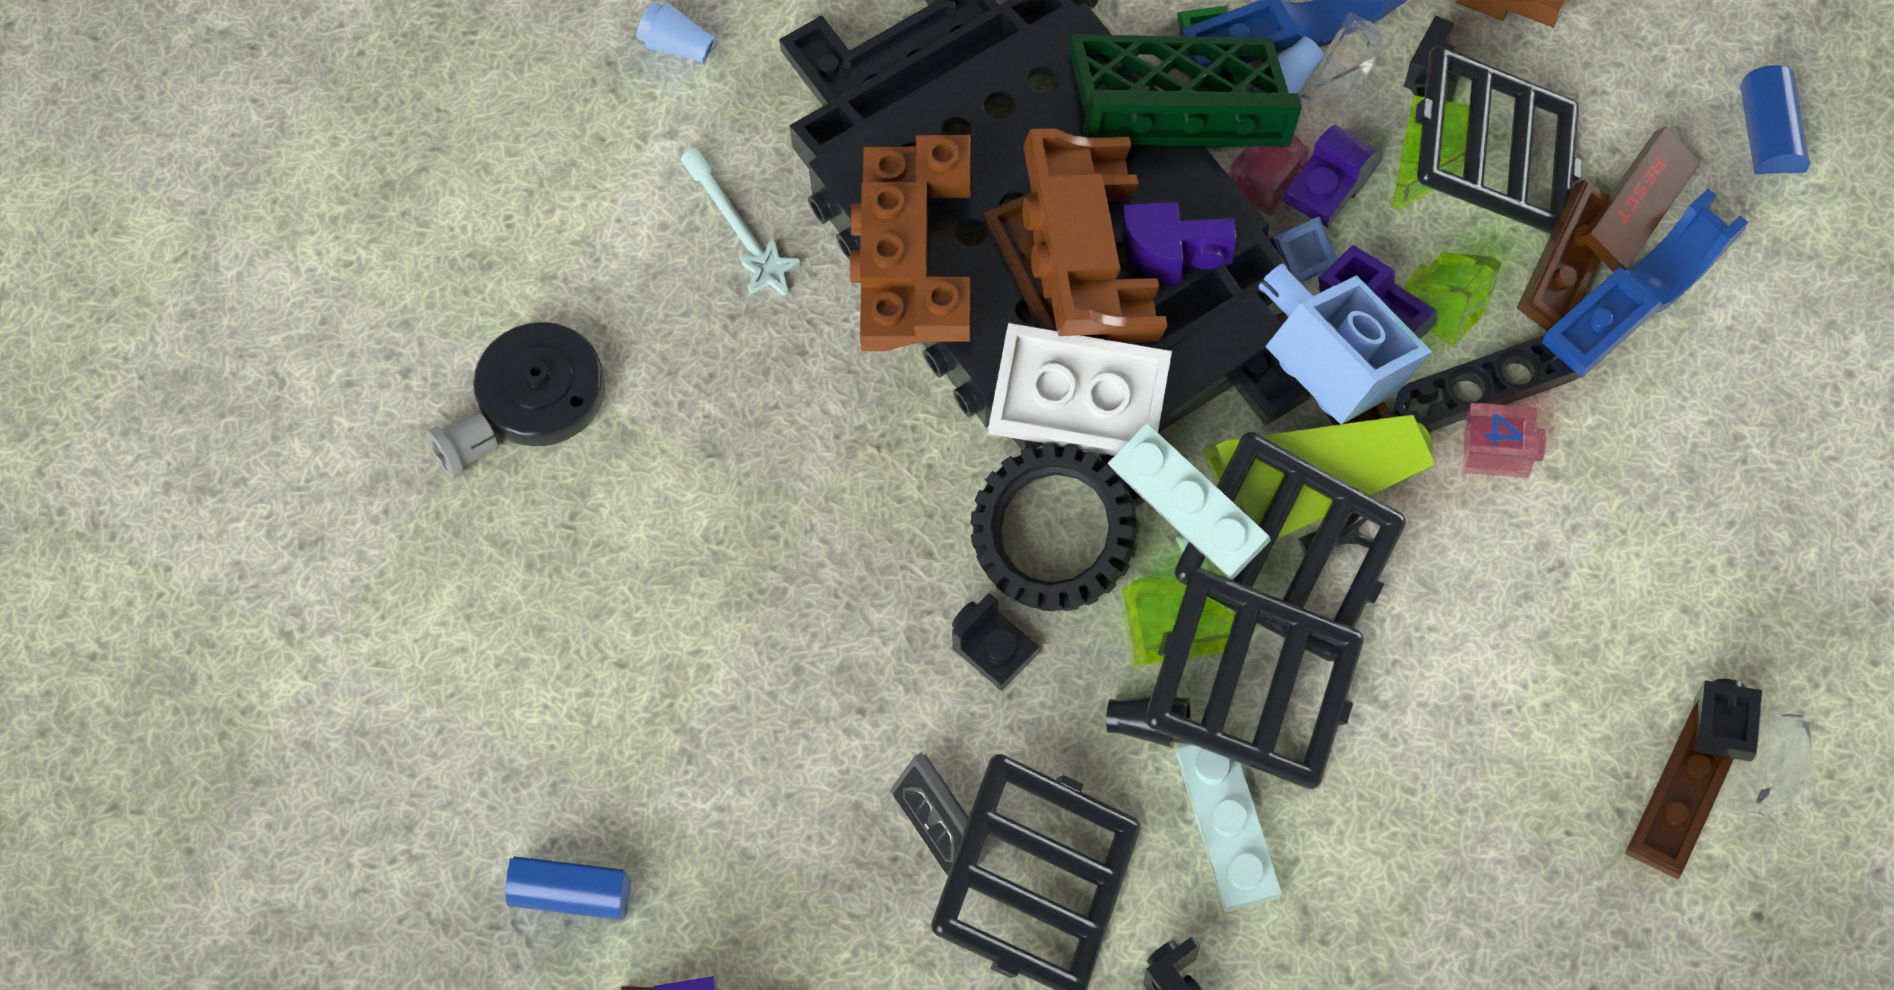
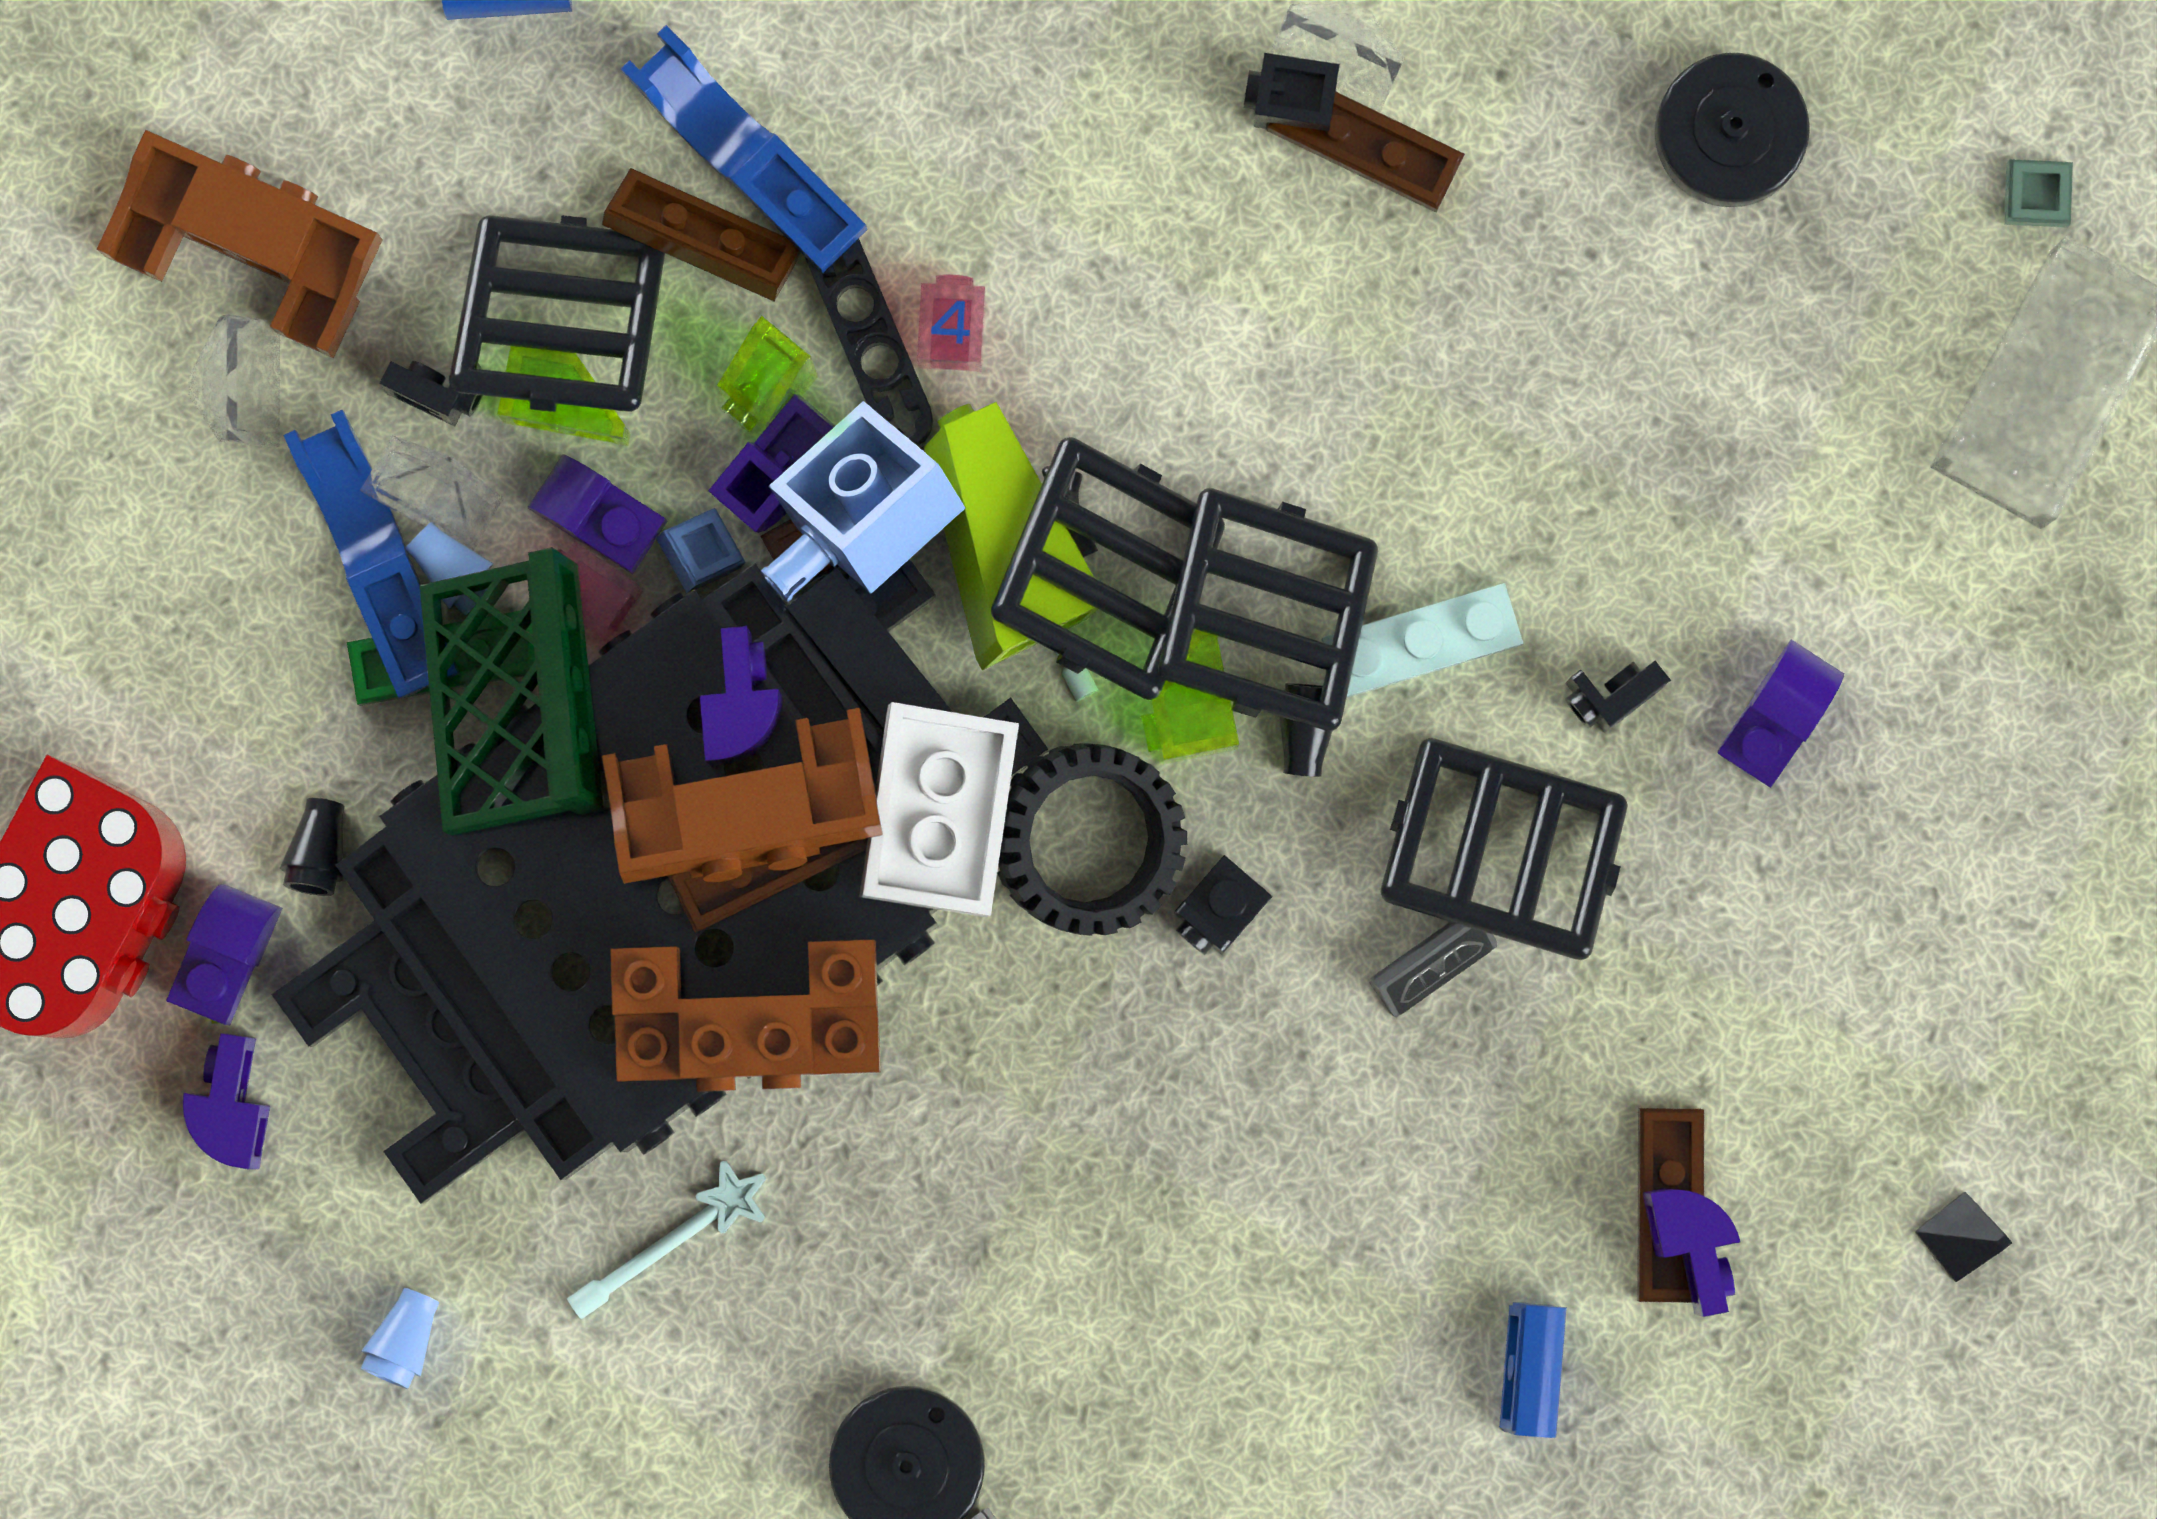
camera: 95 degrees left, 20 degrees up
(1189, 501) = (1080, 681): light aqua plate -> none
(1640, 200) = (624, 148): reddish brown tile -> none

